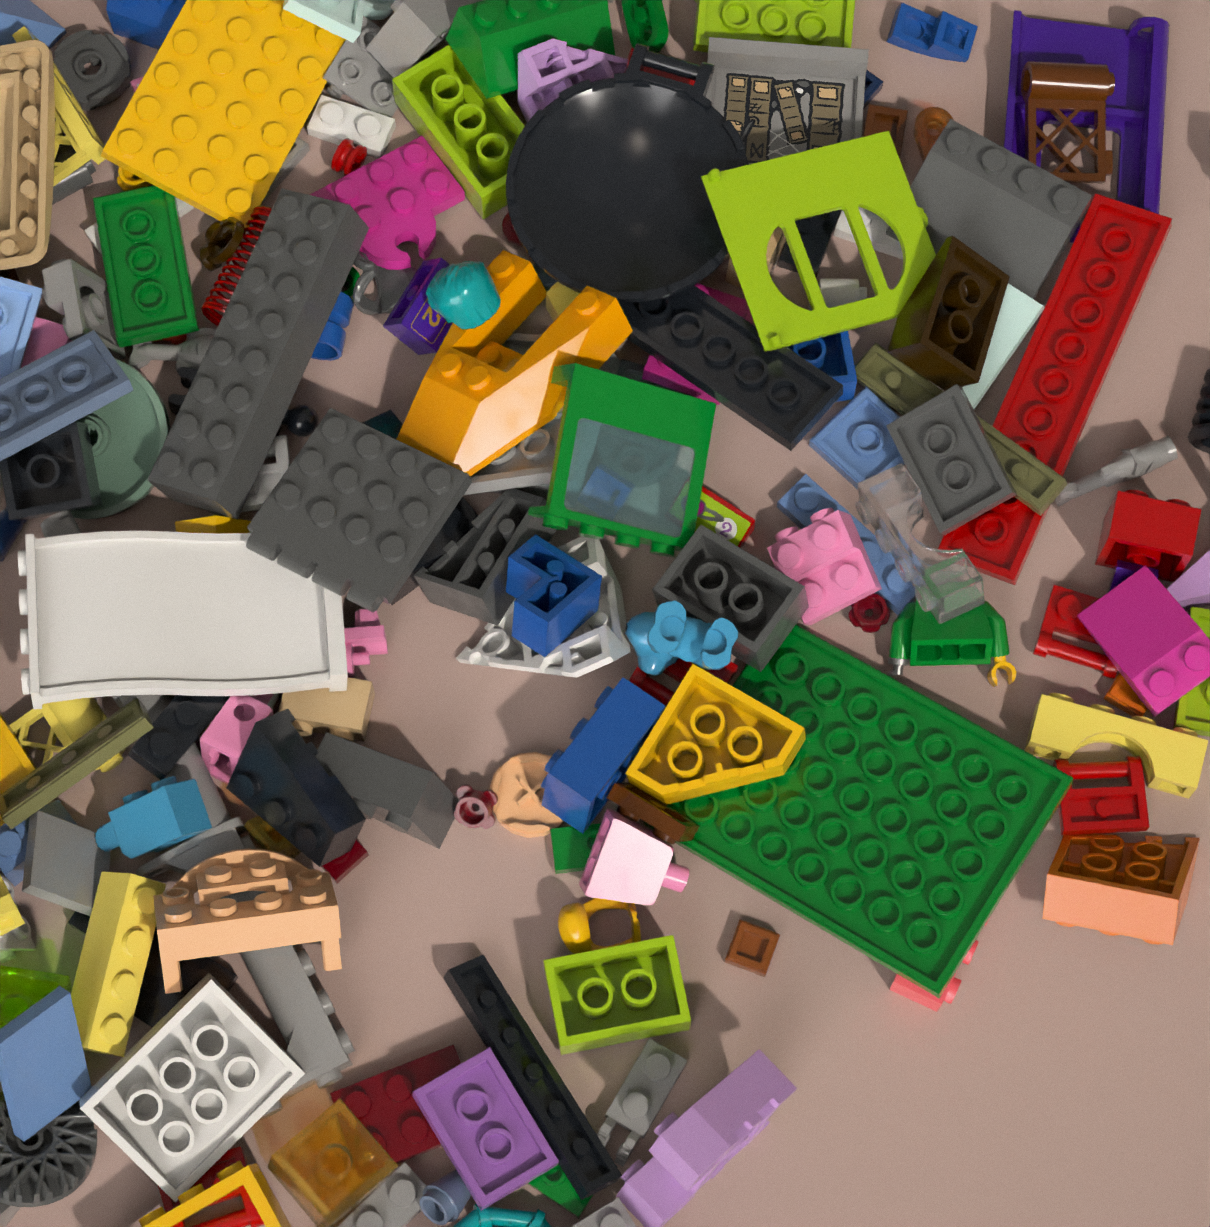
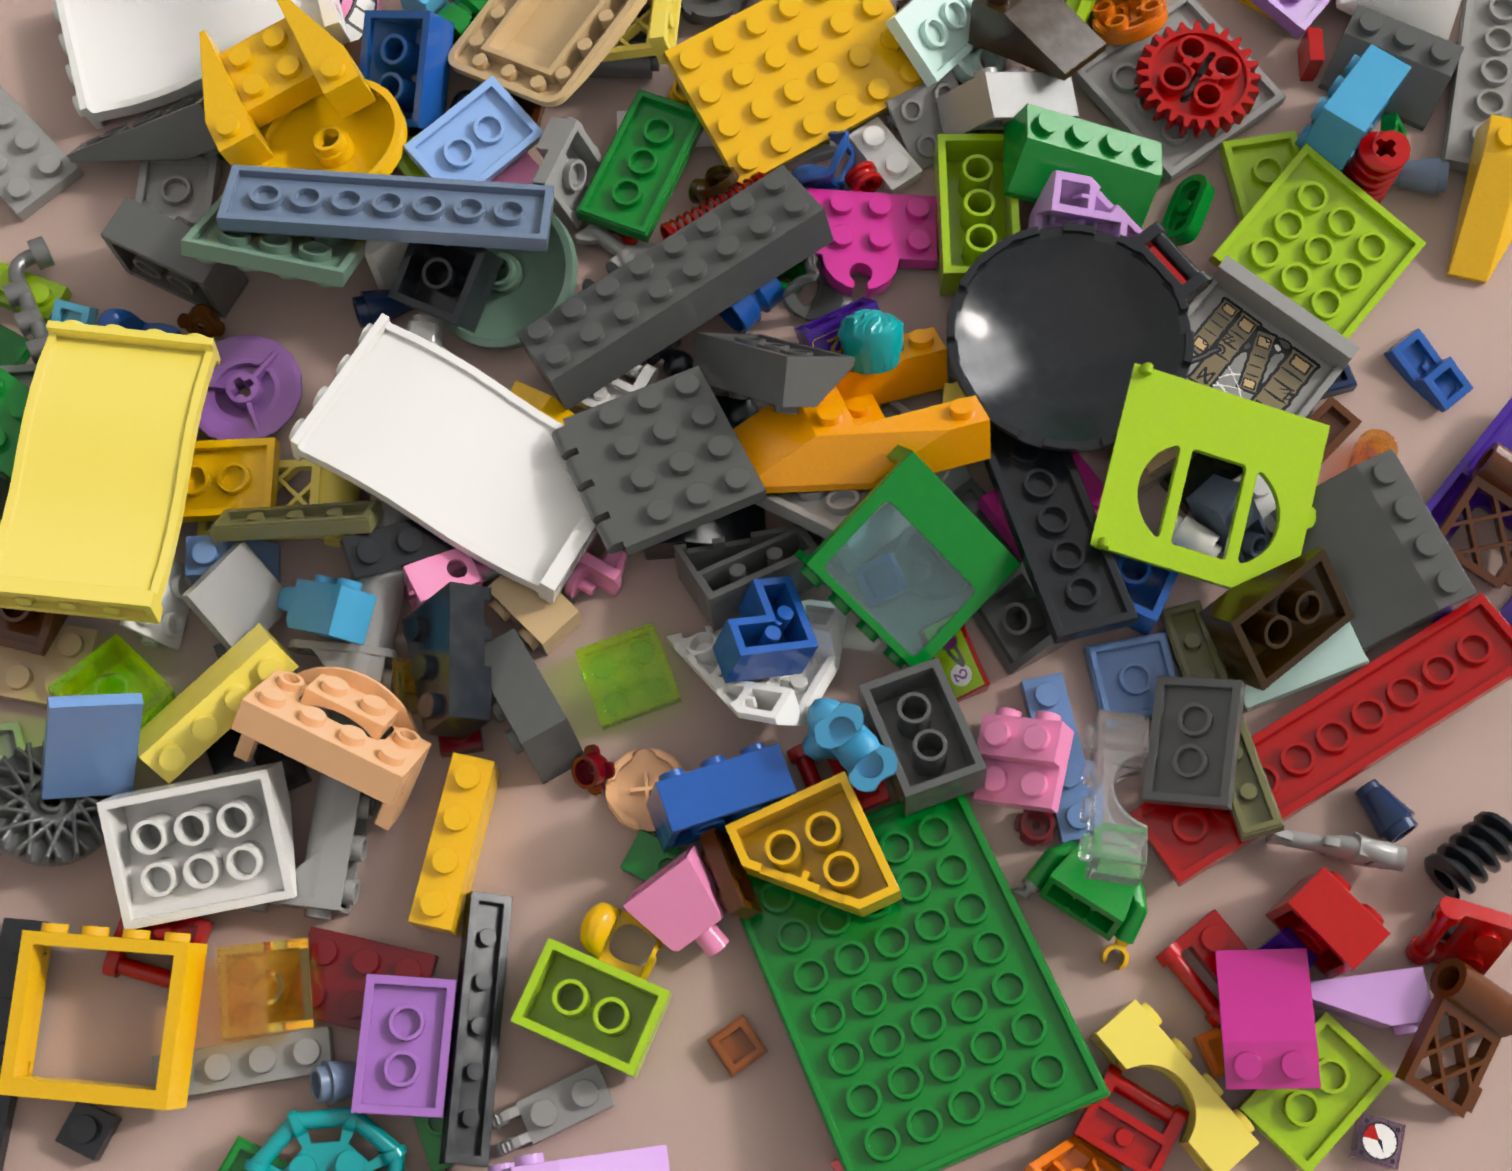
camera: 35 degrees right, 0 degrees up
(314, 178) = (823, 177): none -> blue piece
(393, 372) = (768, 369): none -> dark grey slope
(405, 943) = (455, 844): none -> yellow brick
(448, 710) = (628, 675): none -> clear neon green plate
(743, 456) = (1016, 623): none -> dark grey slope
(838, 257) = (1214, 507): none -> sand blue slope
(1134, 419) = (1386, 812): none -> dark blue cone

